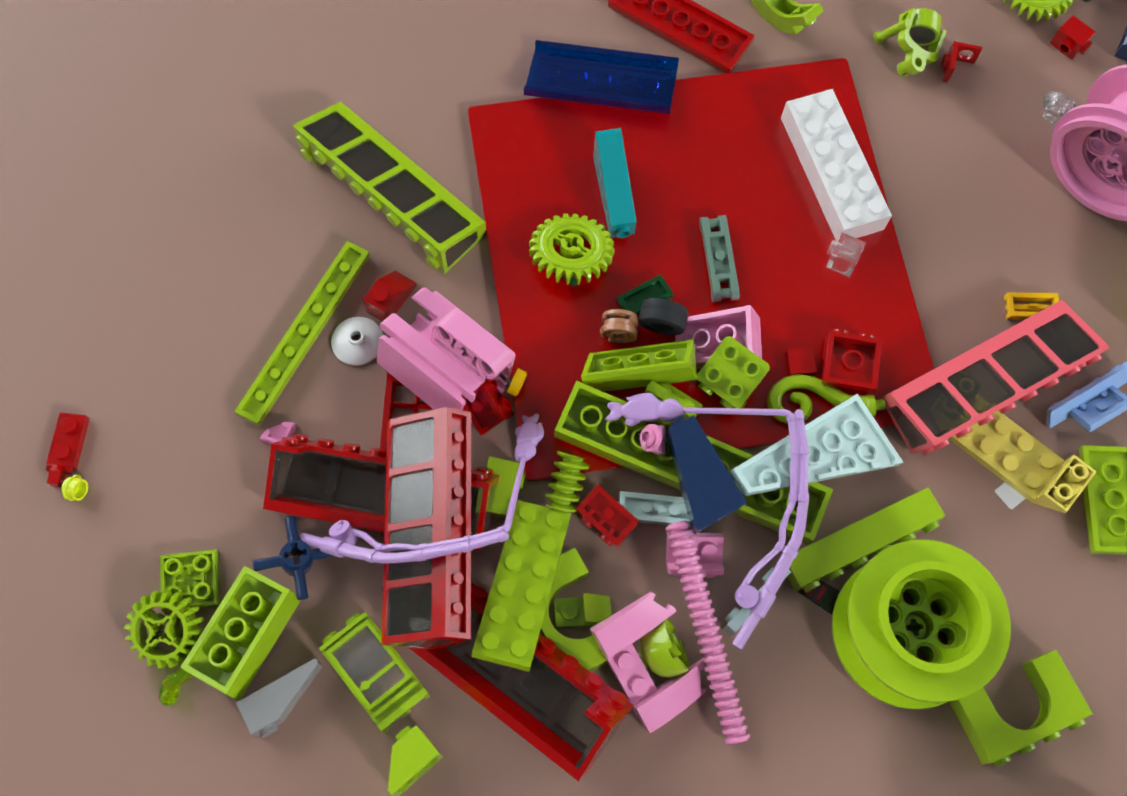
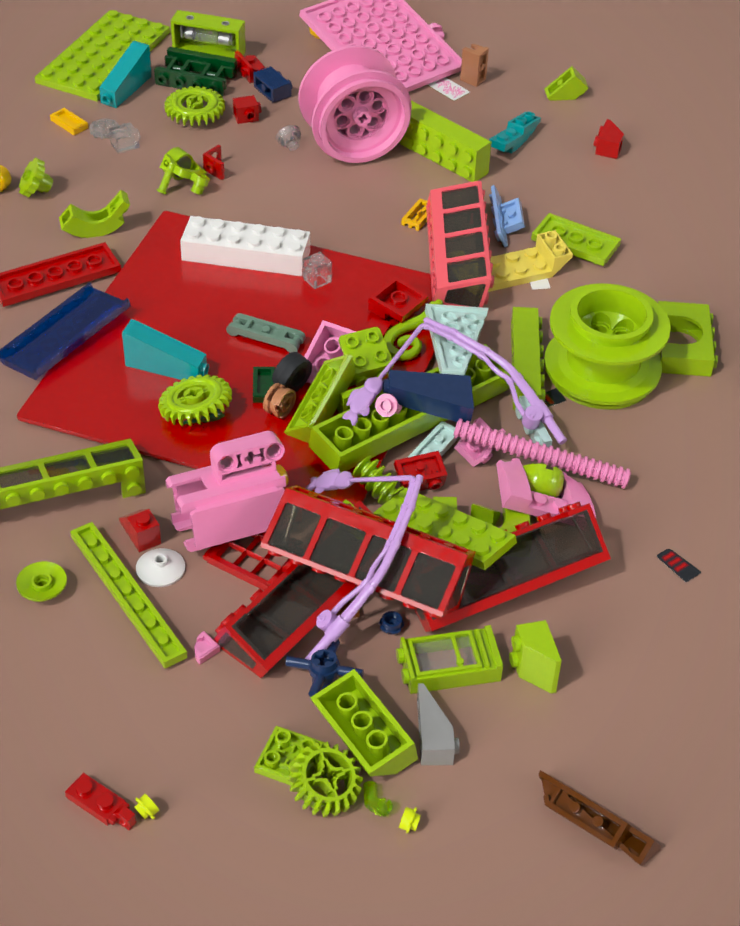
camera: 60 degrees left, 25 degrees down
(164, 728) = (409, 819): none -> neon yellow plate
(276, 243) = (41, 581): none -> lime dish

